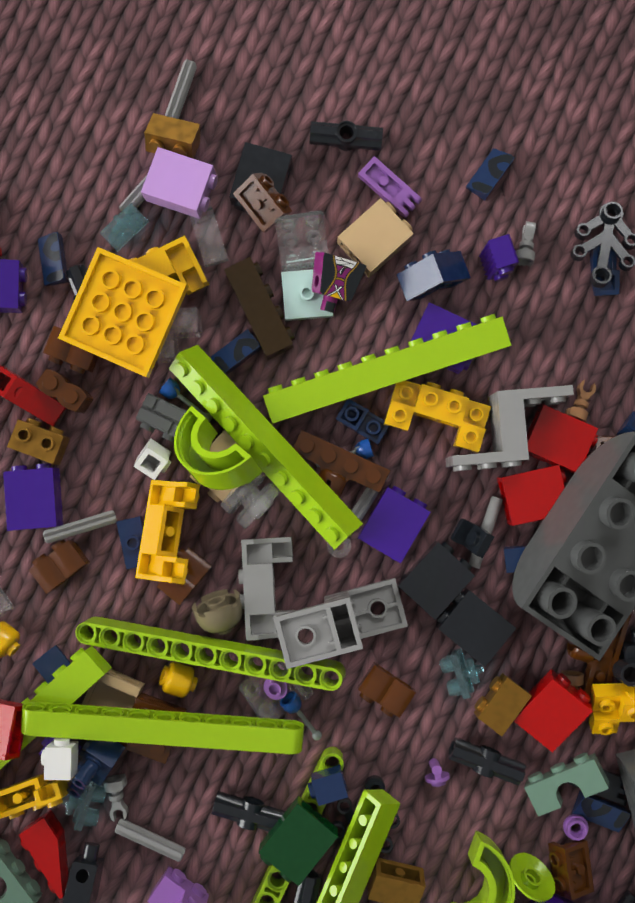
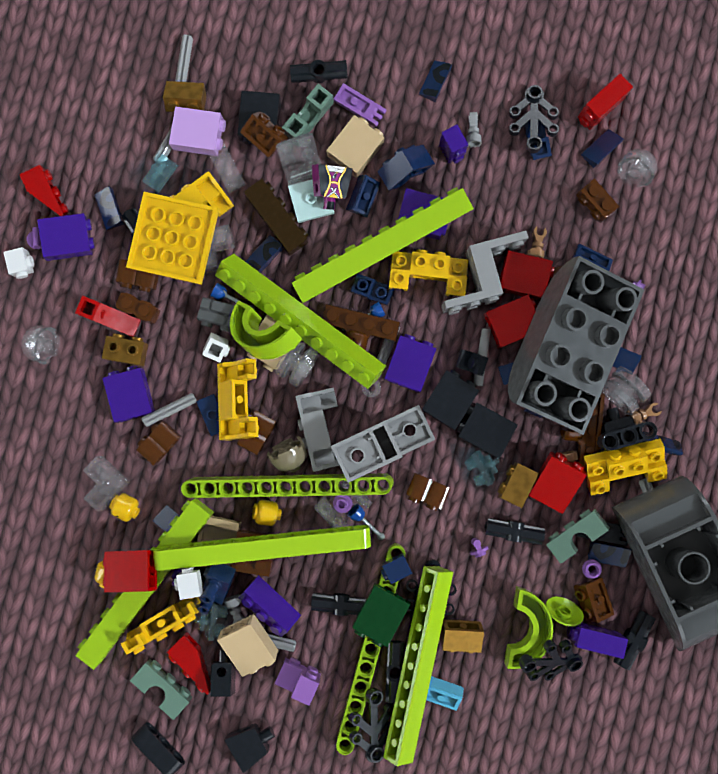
camera: 10 degrees left, 0 degrees up
(122, 845) = (248, 645): none -> tan brick
(159, 801) = (269, 606): none -> dark purple brick
(335, 178) = (316, 106): none -> sand green arch
(373, 301) = (363, 195): none -> dark blue slope

